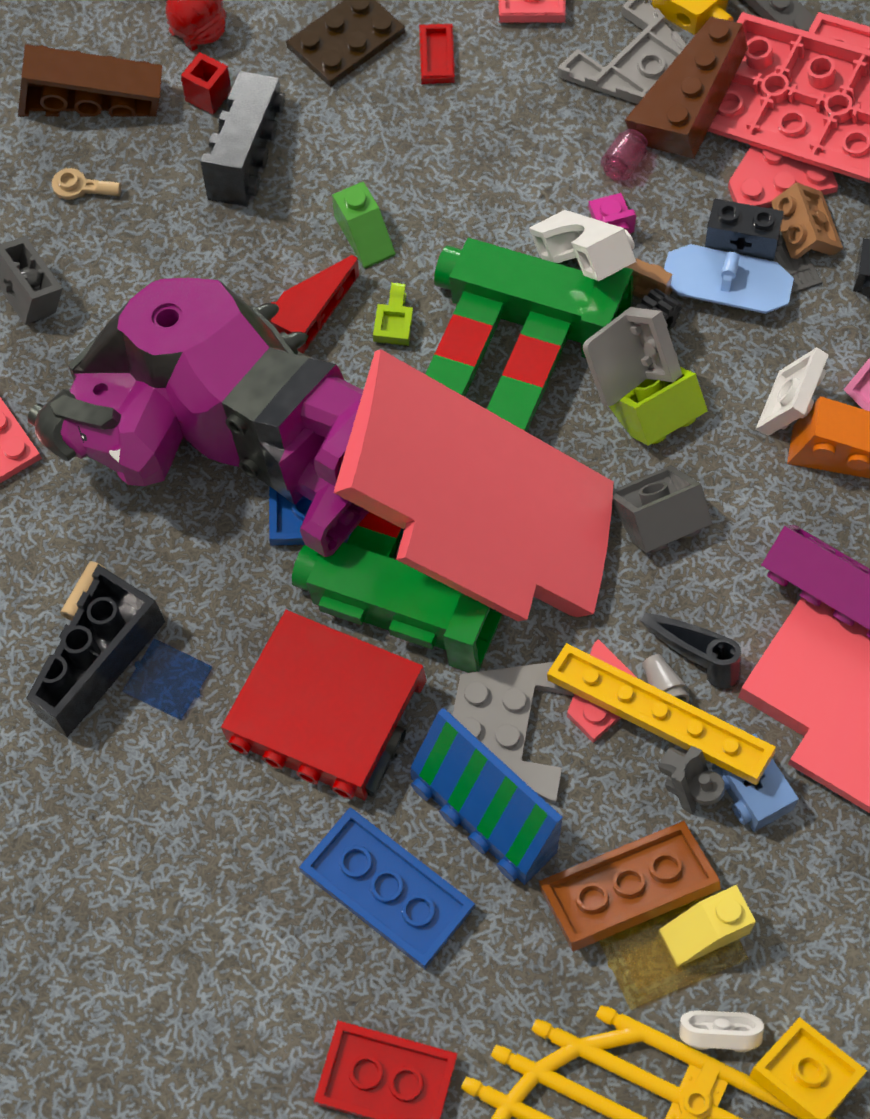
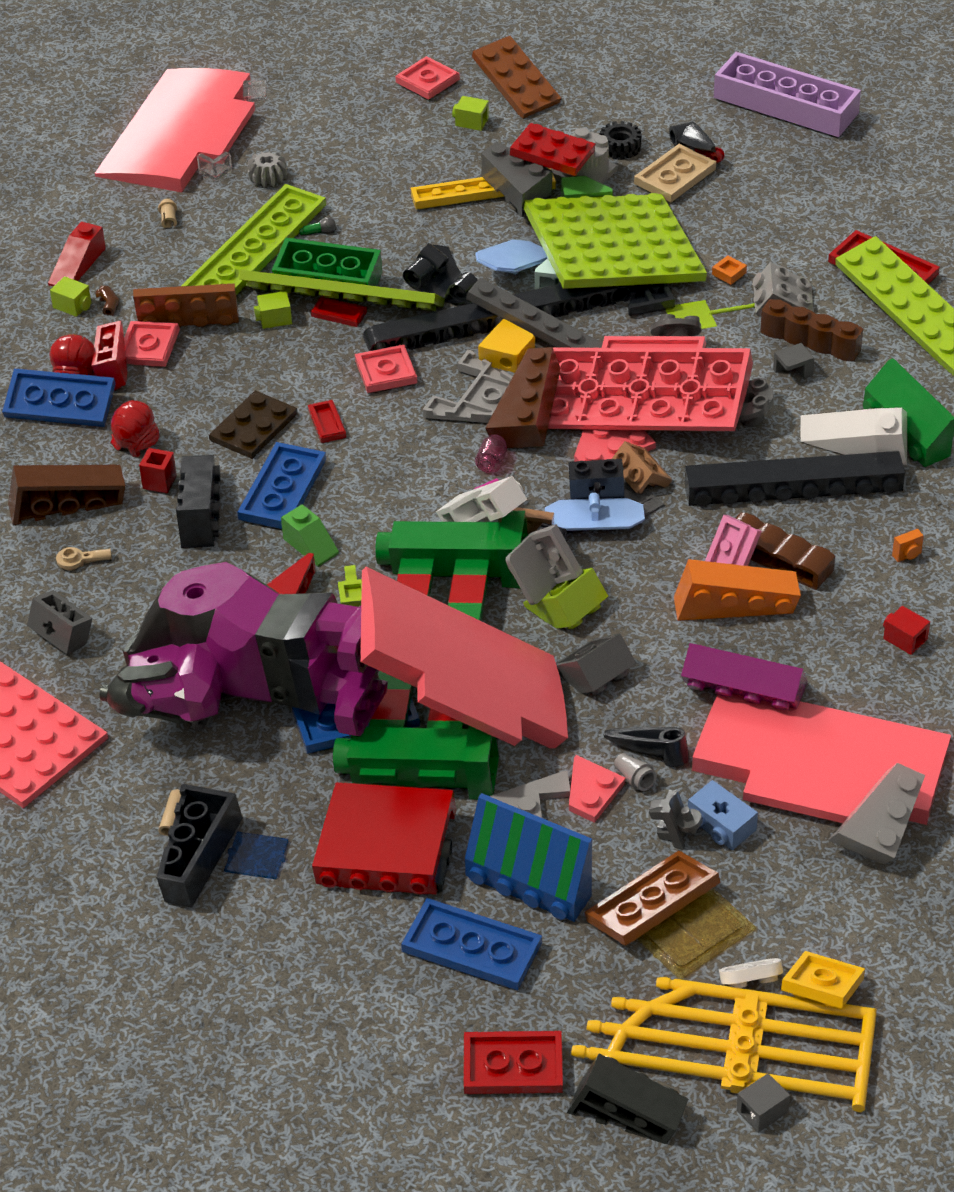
camera: 15 degrees left, 20 degrees down
(353, 137) = (281, 484): none -> blue plate
(661, 713) = (638, 781): yellow plate -> none
(708, 926) = (720, 904): light yellow slope -> none
(793, 392) = (667, 569): white plate -> none

